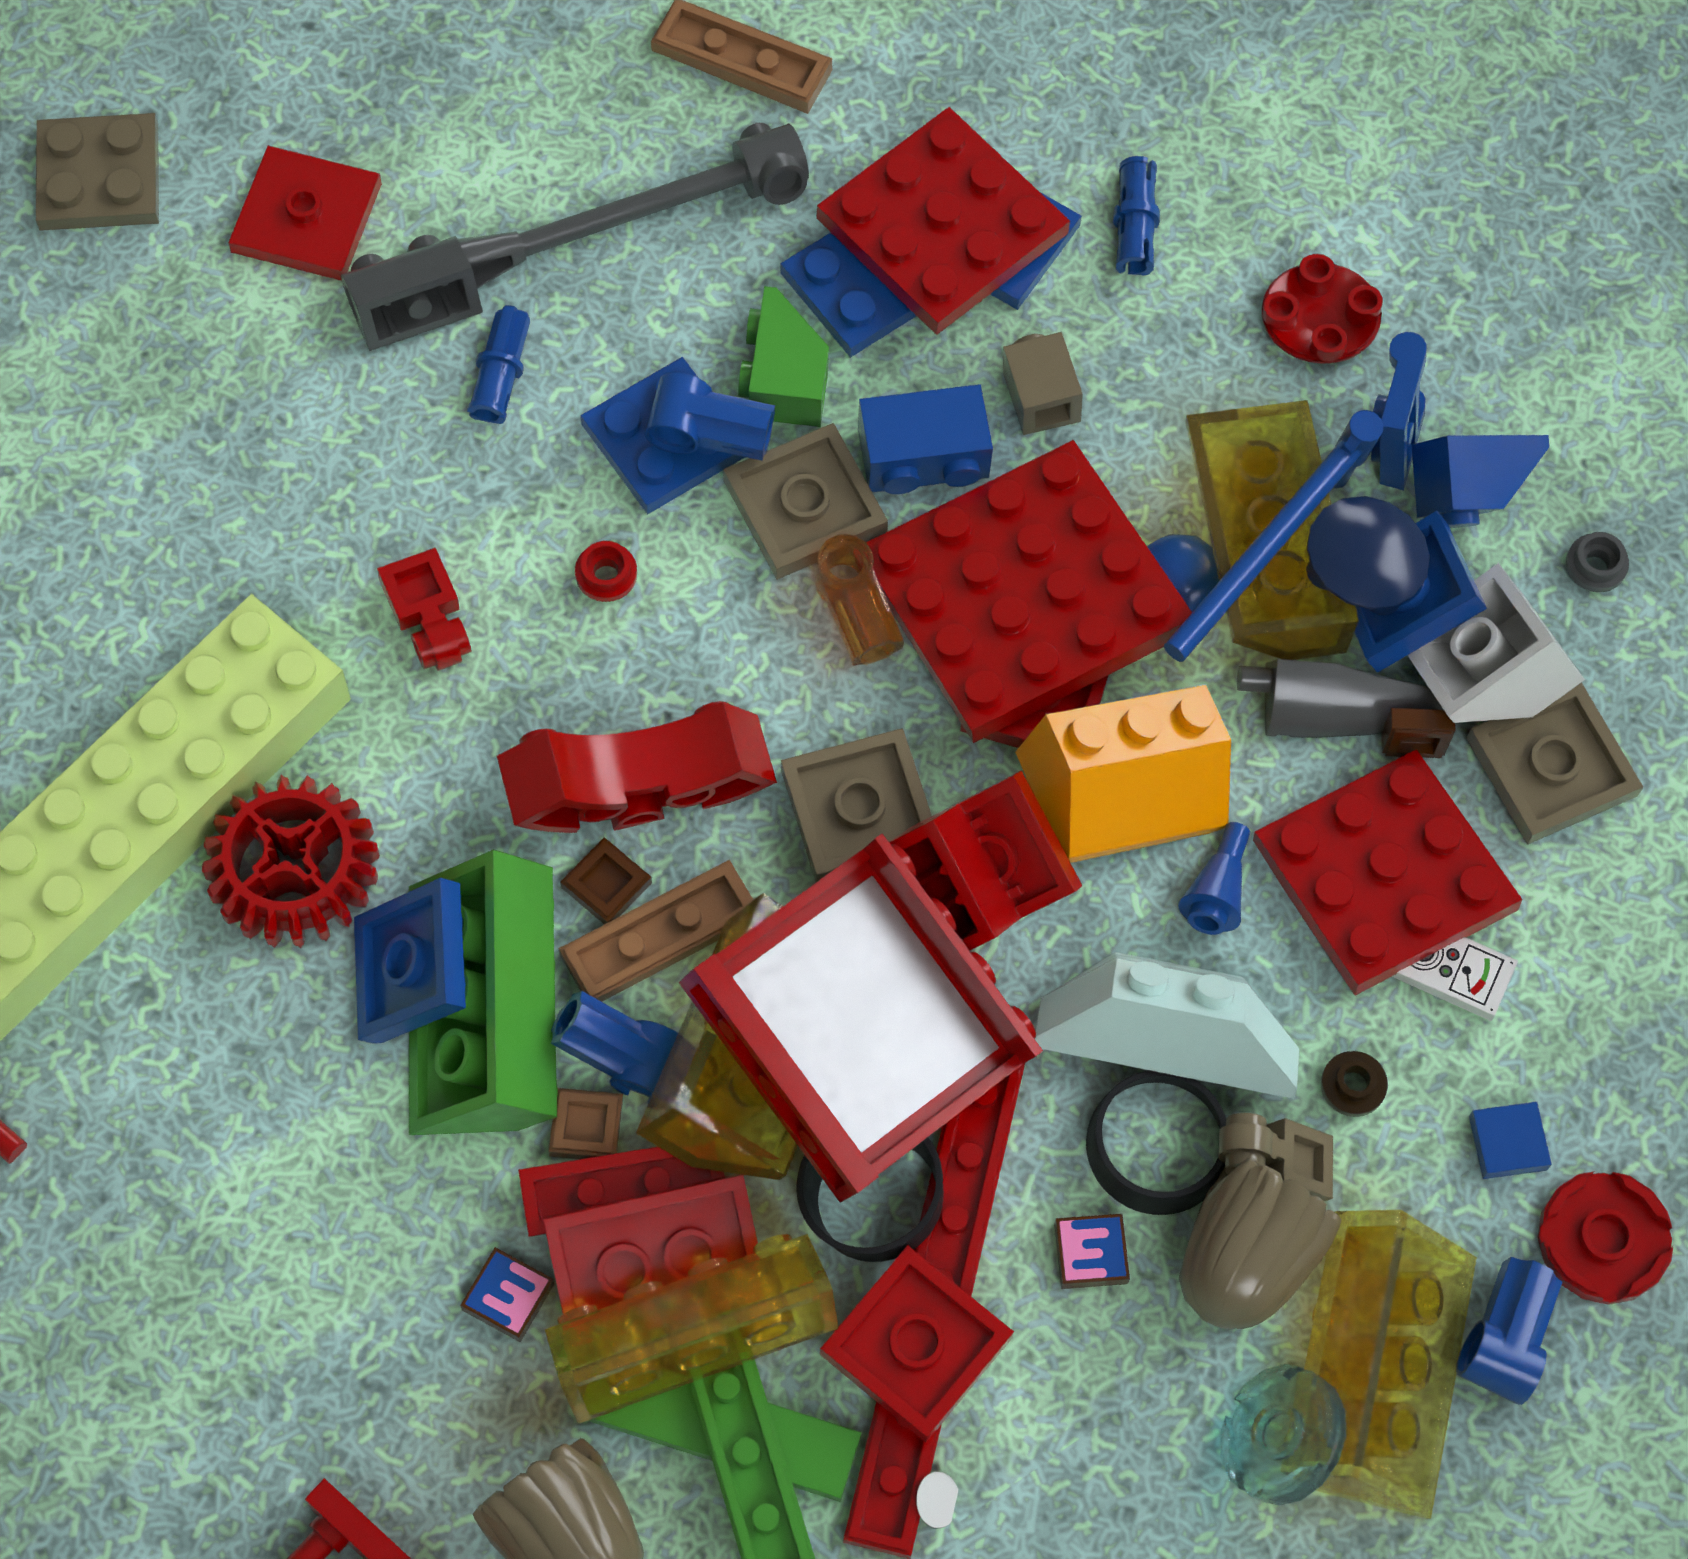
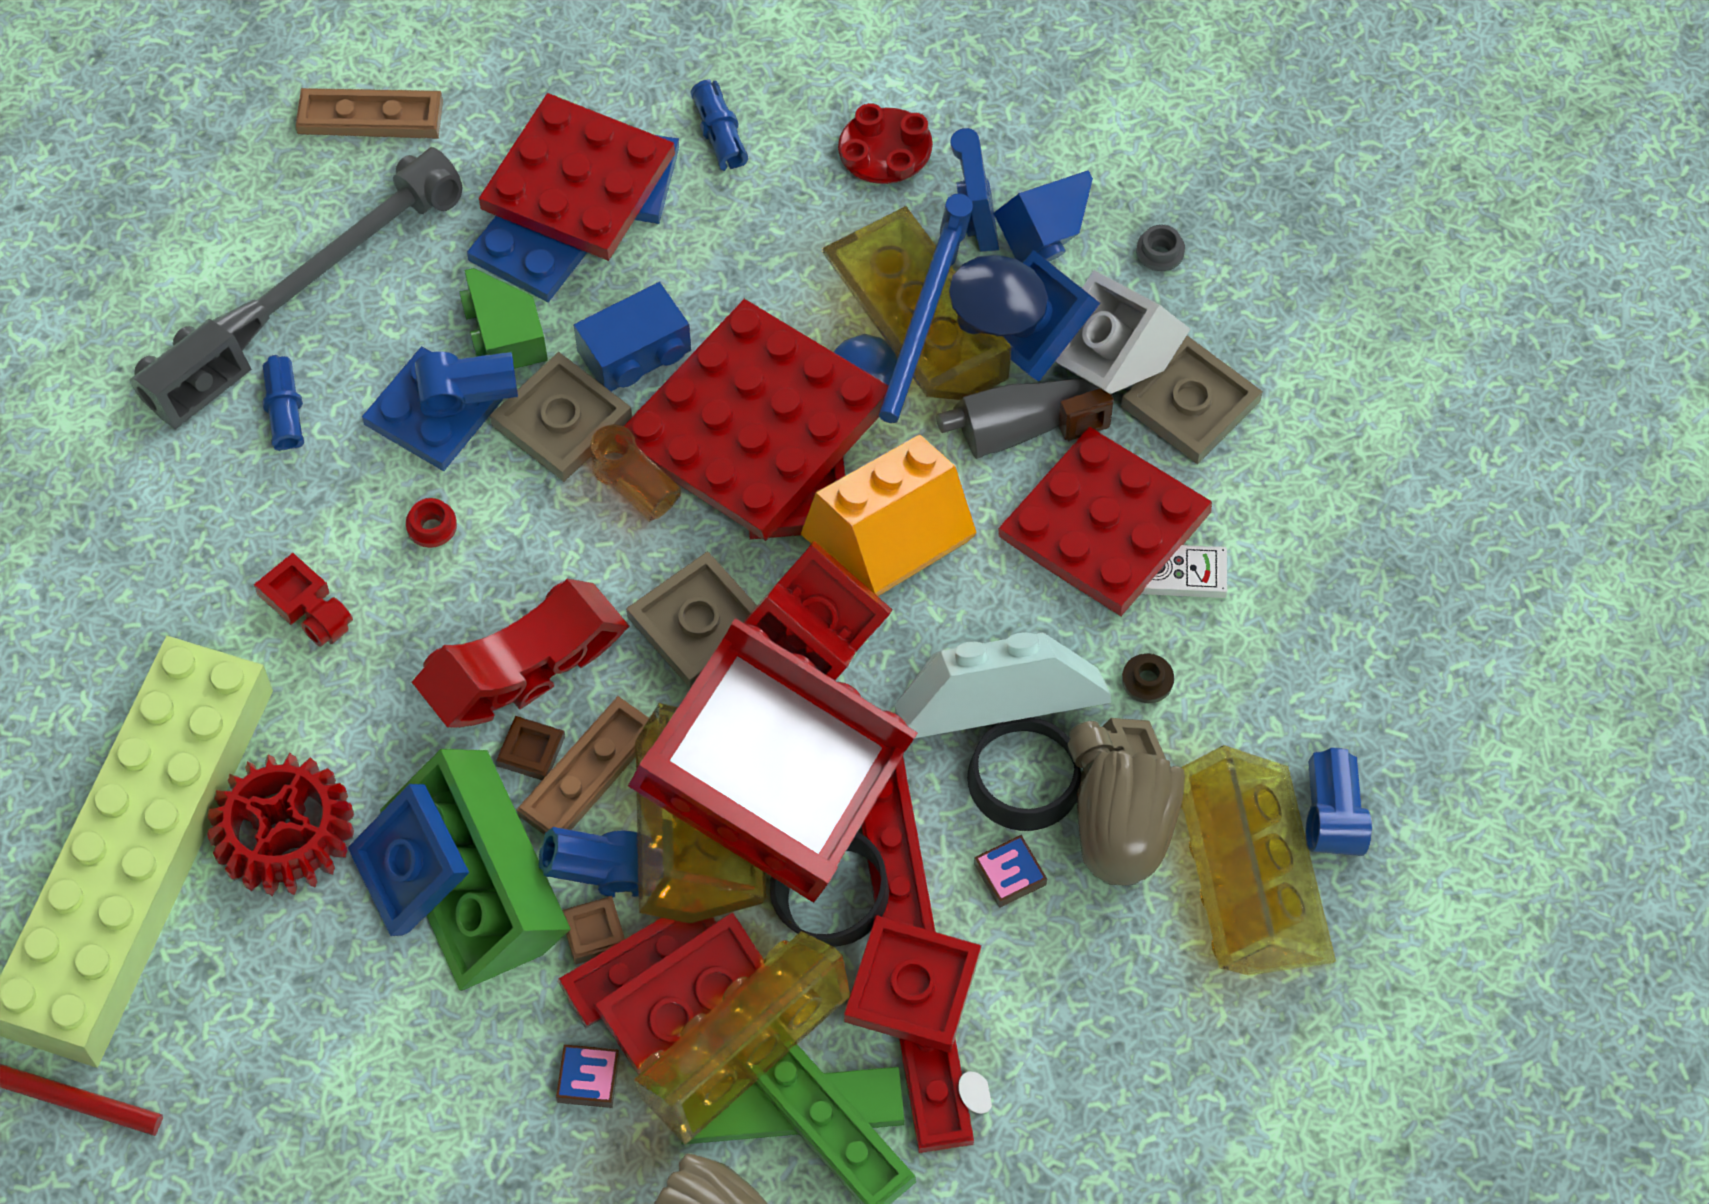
camera: 20 degrees left, 5 degrees down
(305, 213) = (79, 346): red plate -> none
(1042, 382) = (702, 267): dark tan brick -> none
(1215, 896) = (989, 585): blue cone -> none
(1283, 1435) = (1207, 940): clear light blue tile -> none
(1510, 1140) = (1276, 674): blue tile -> none
(1591, 1254) = (1370, 730): red tile -> none

